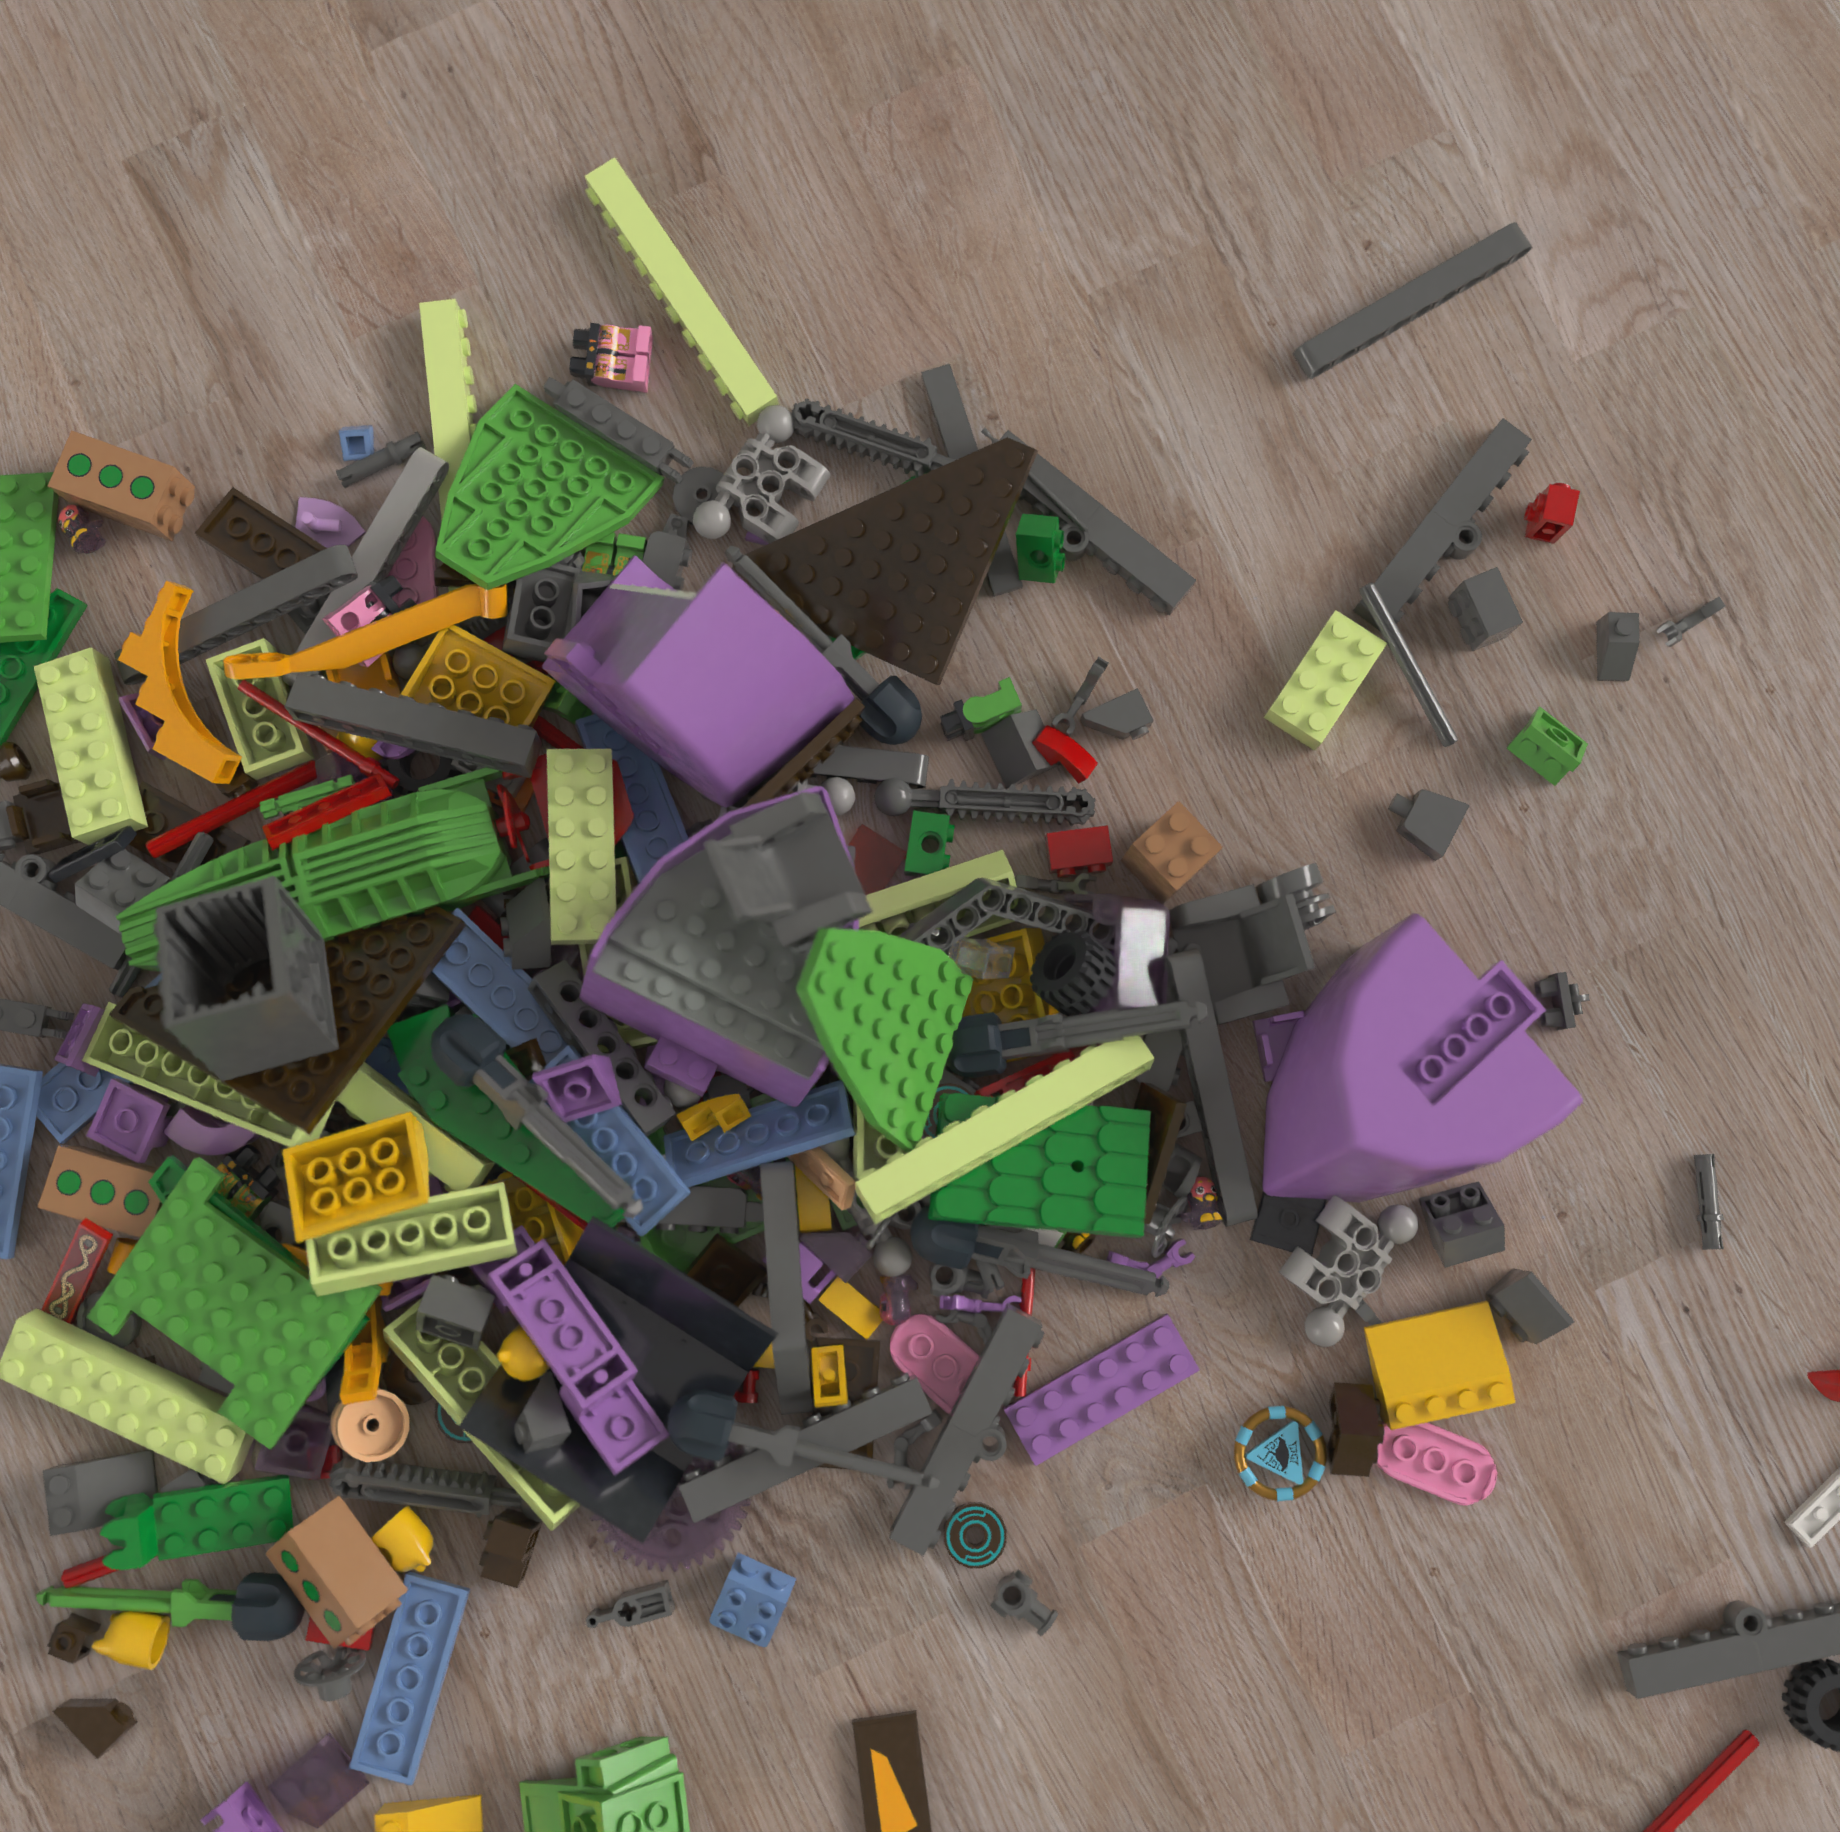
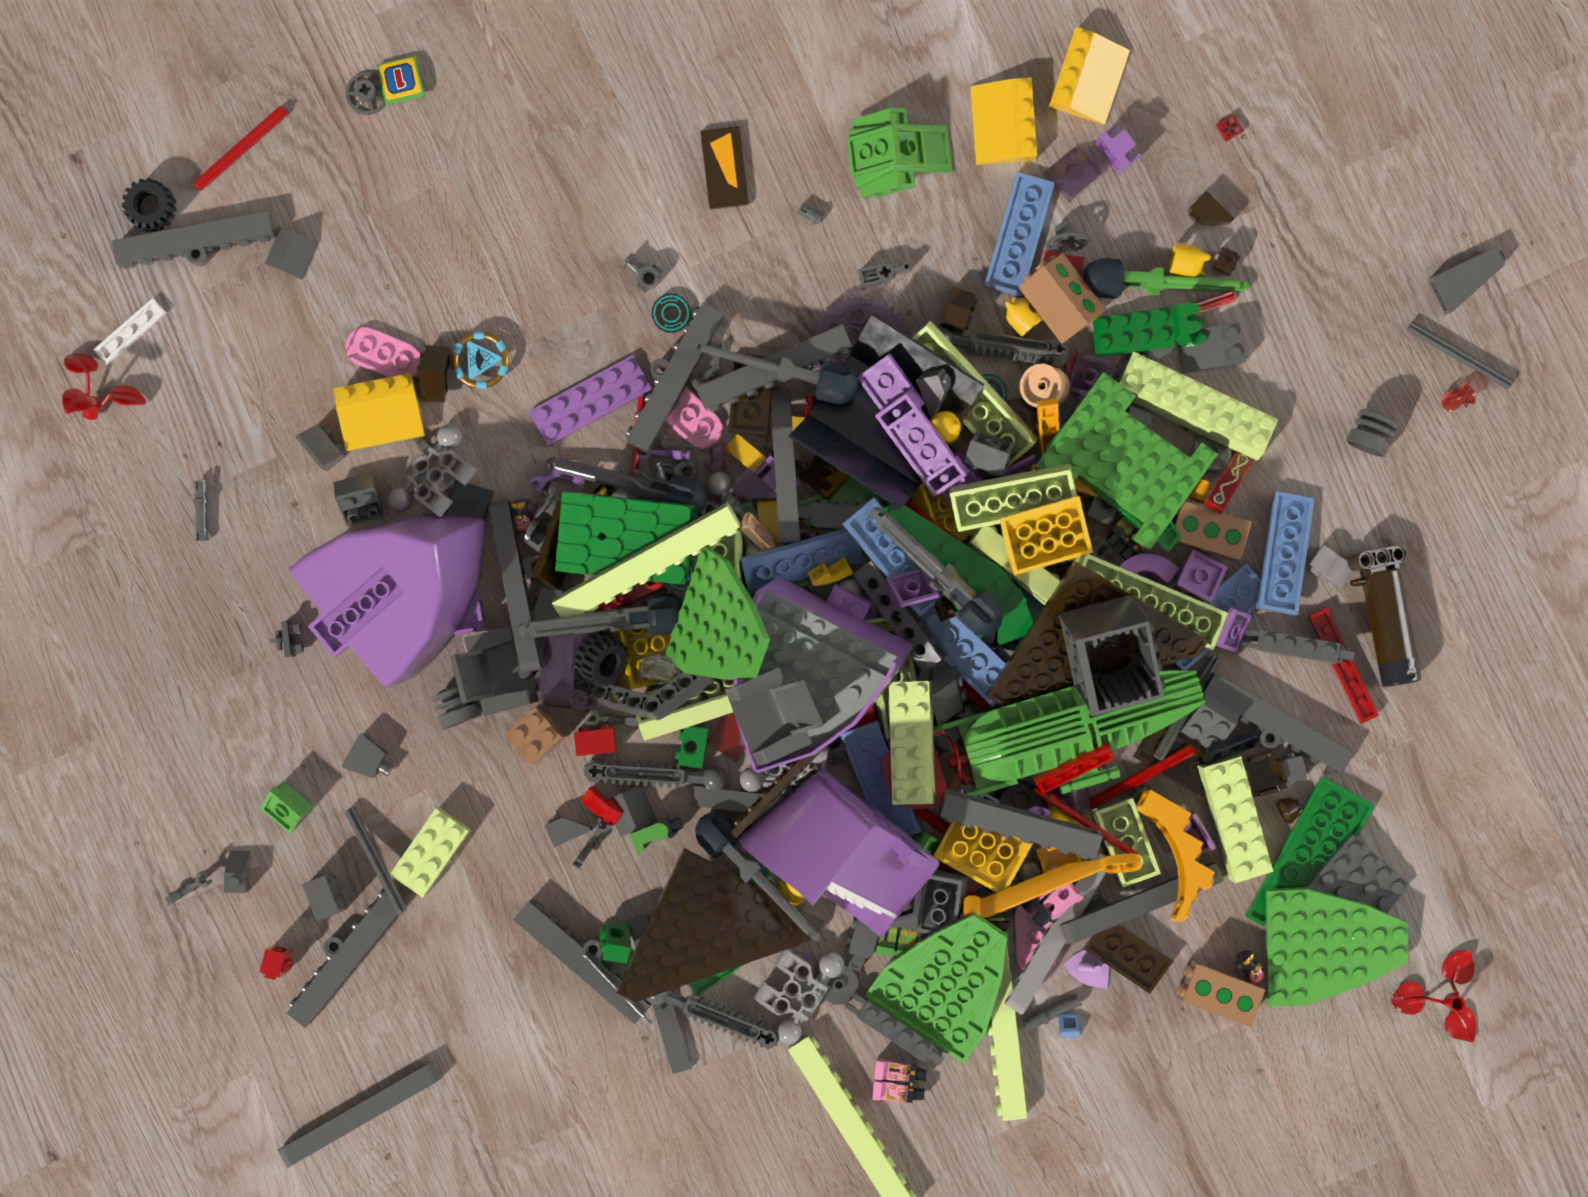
camera: 175 degrees left, 5 degrees up
(747, 1705) = (811, 214): none -> dark grey pin
(752, 1600) = (809, 276): medium blue bracket -> none
(829, 1376) = (759, 411): yellow slope -> none
(1592, 1625) = (290, 253): none -> dark grey slope

